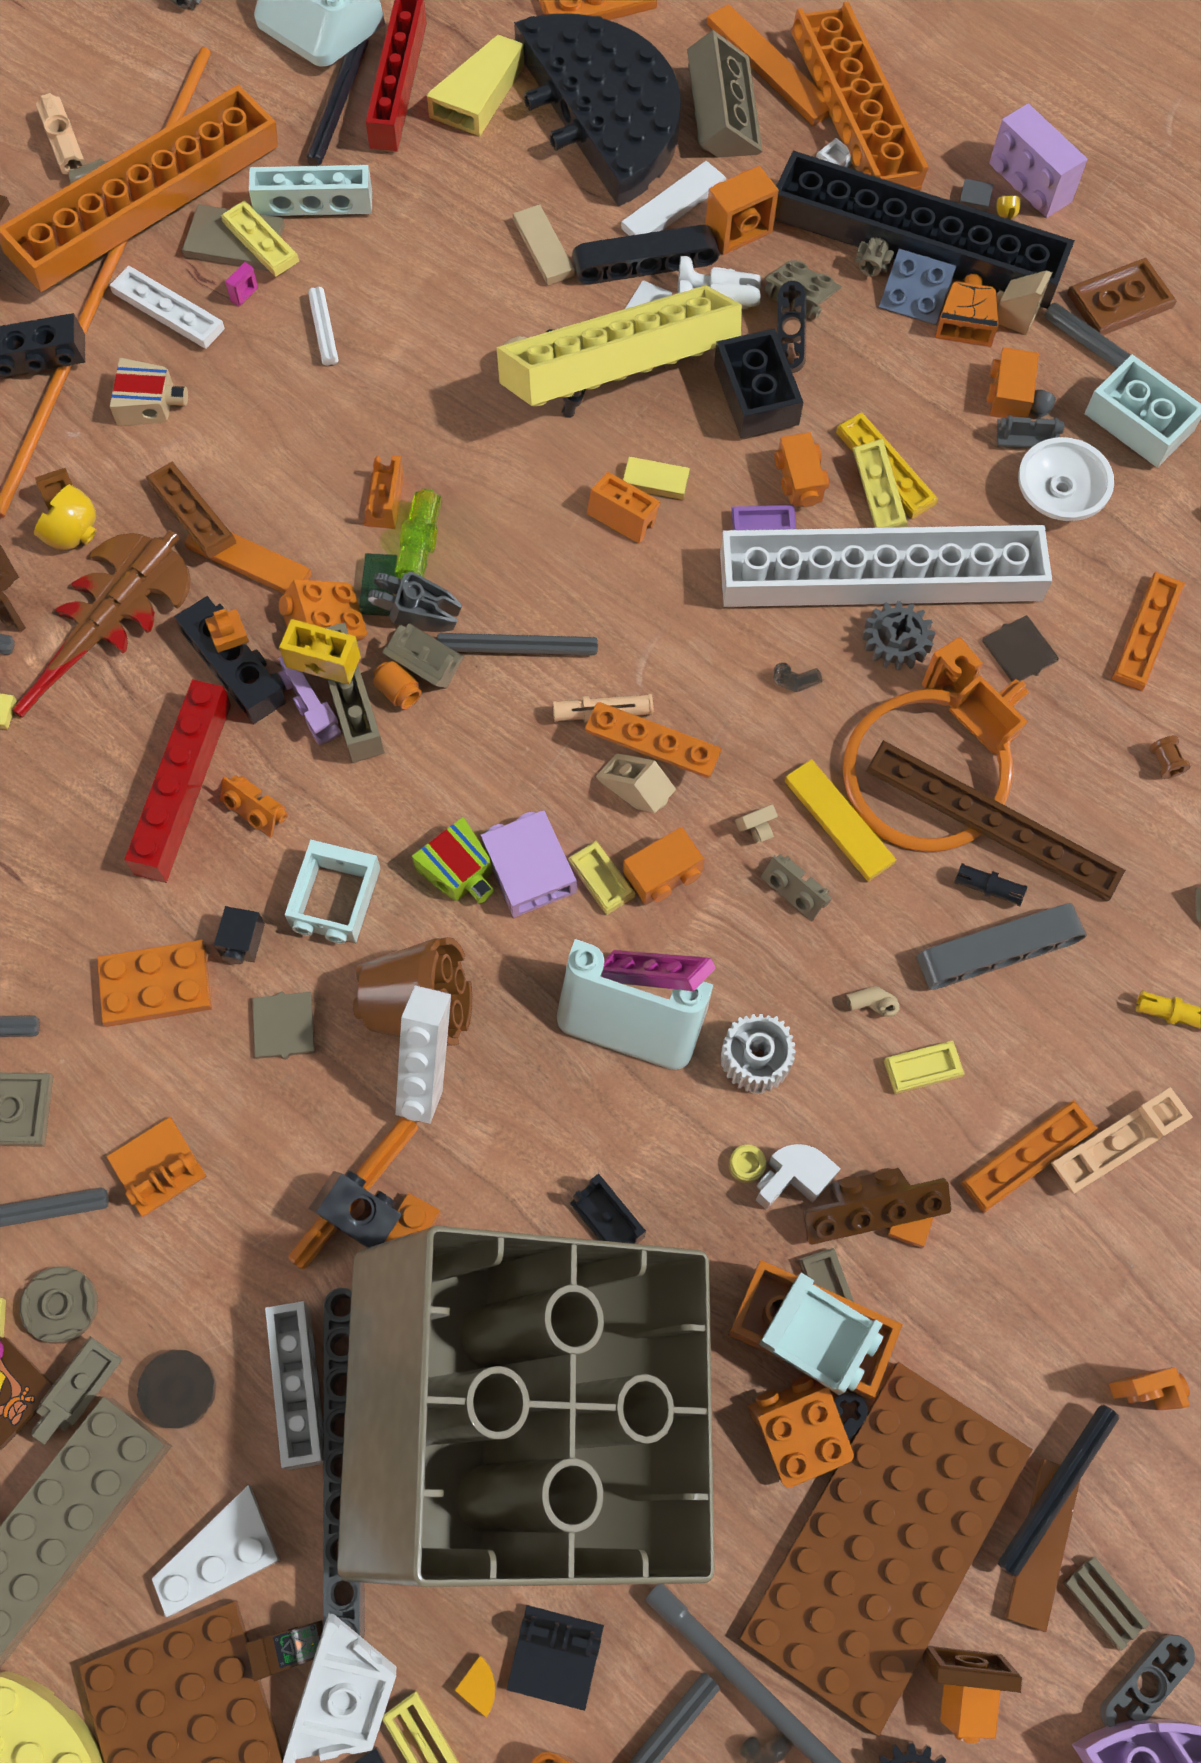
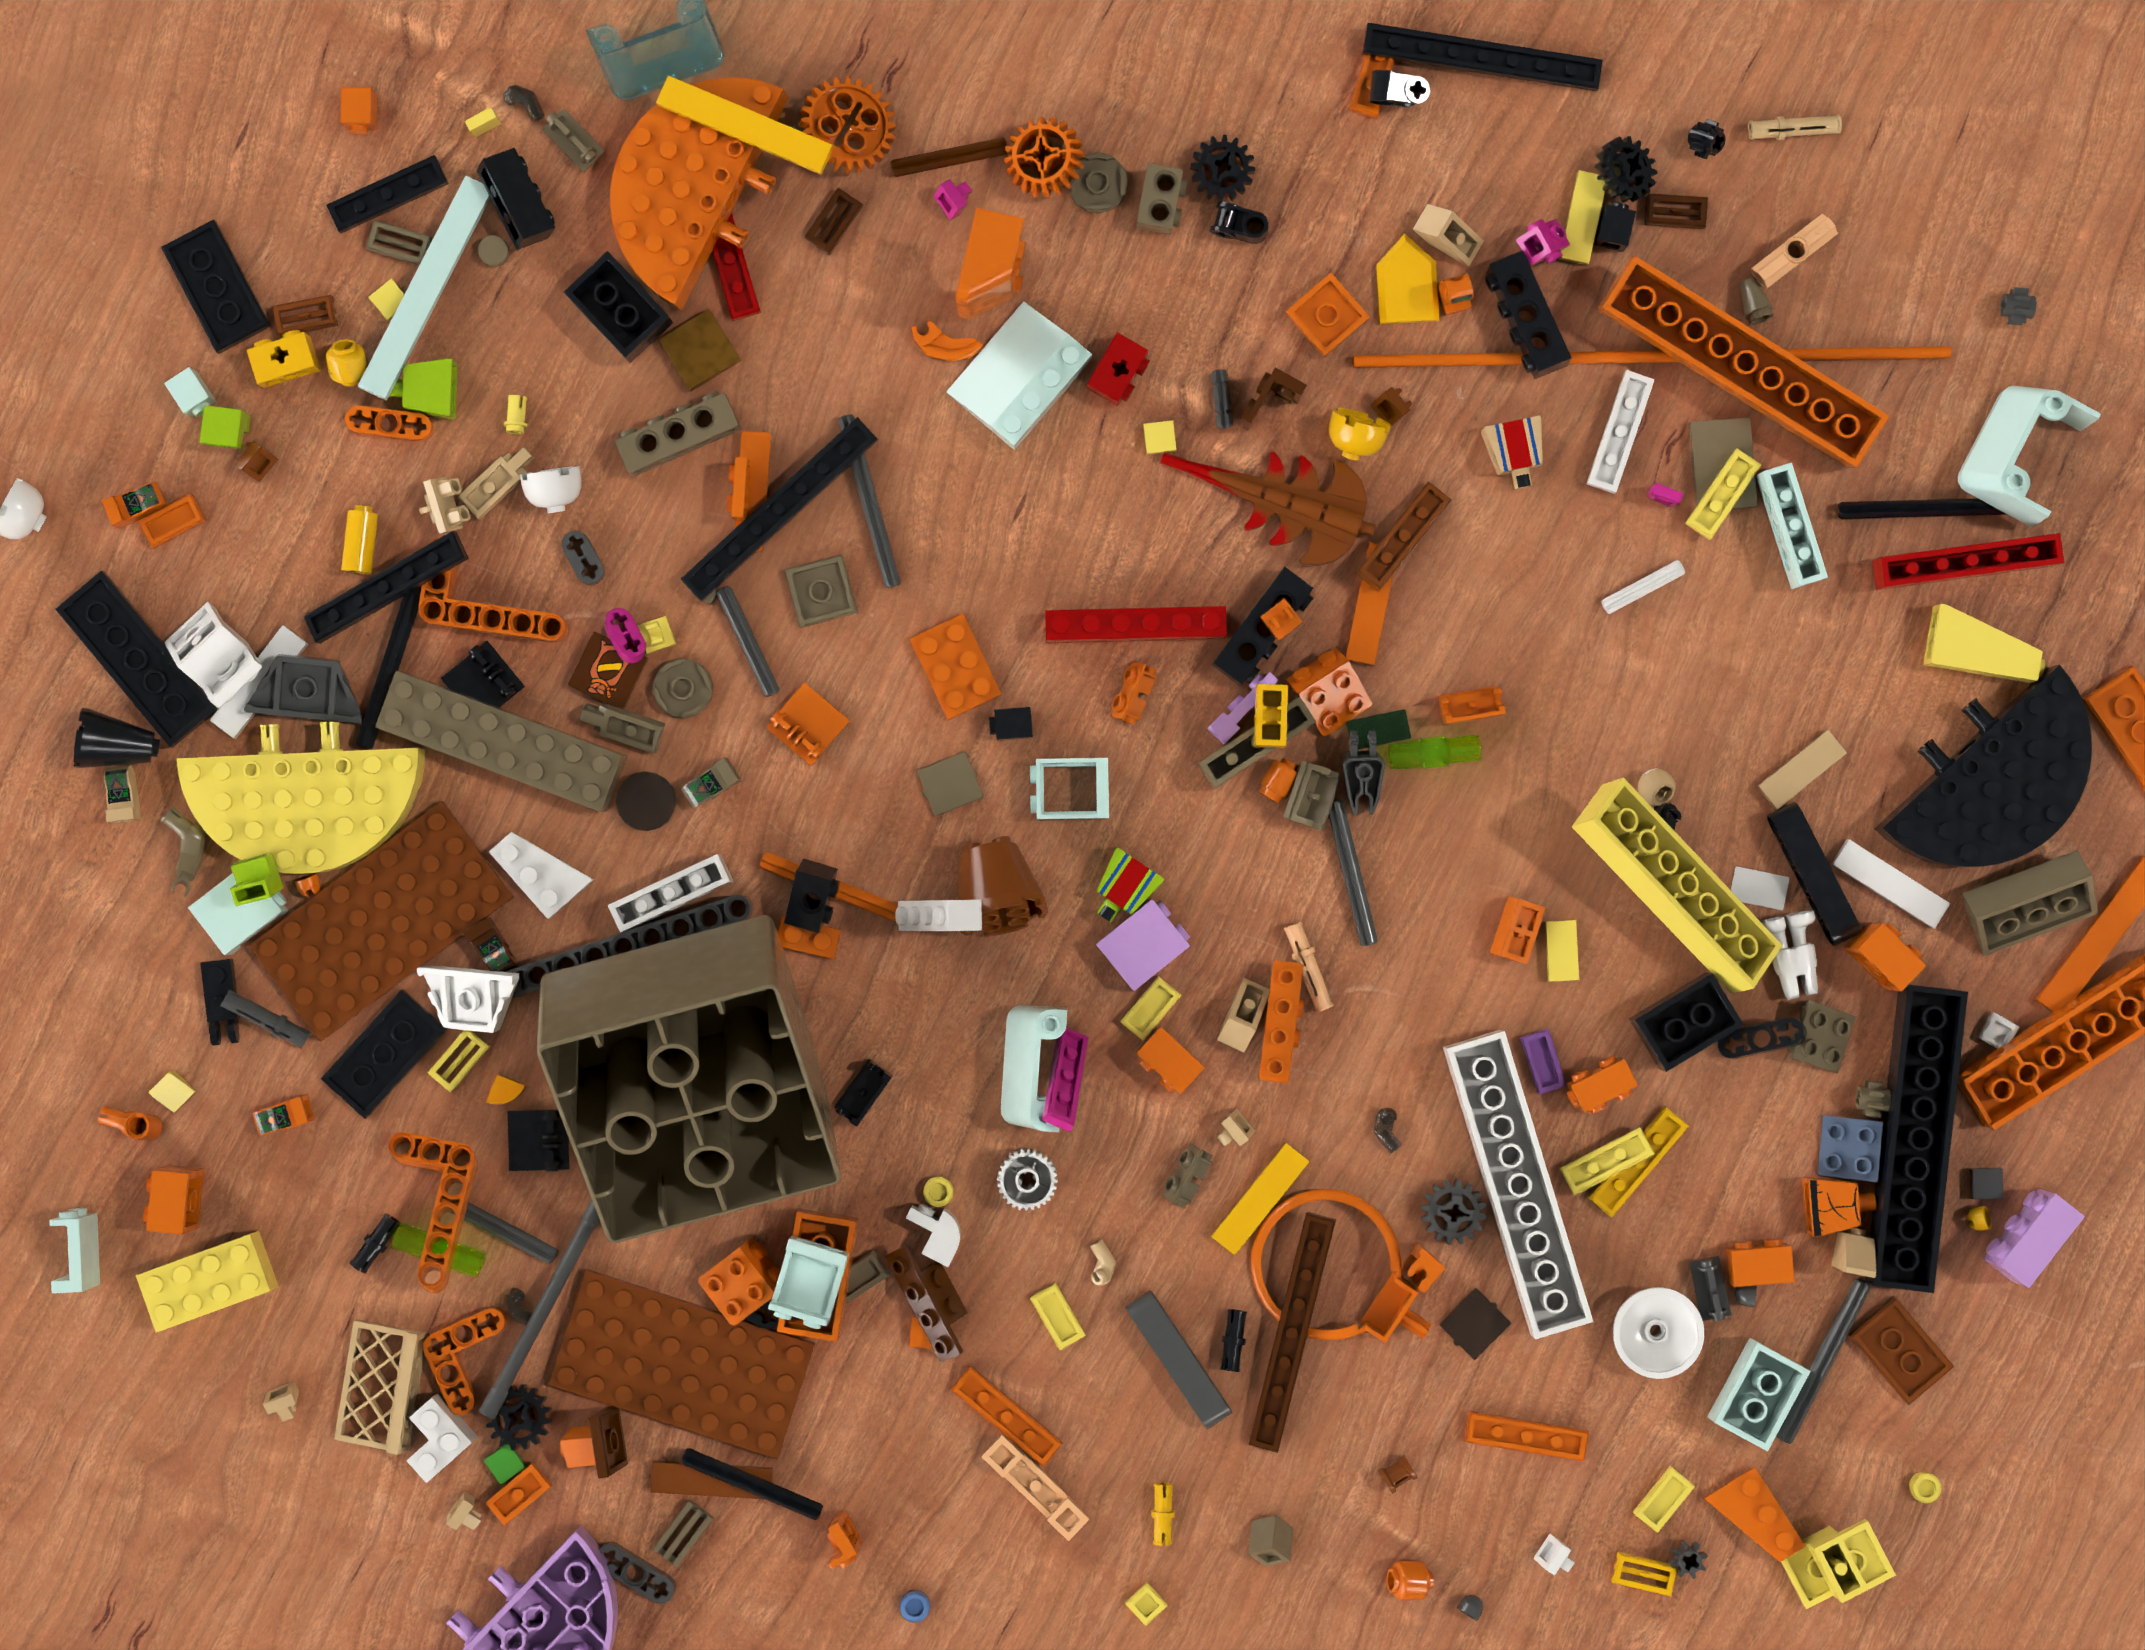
camera: 75 degrees right, 20 degrees up
(182, 1299) = (711, 783): none -> leg

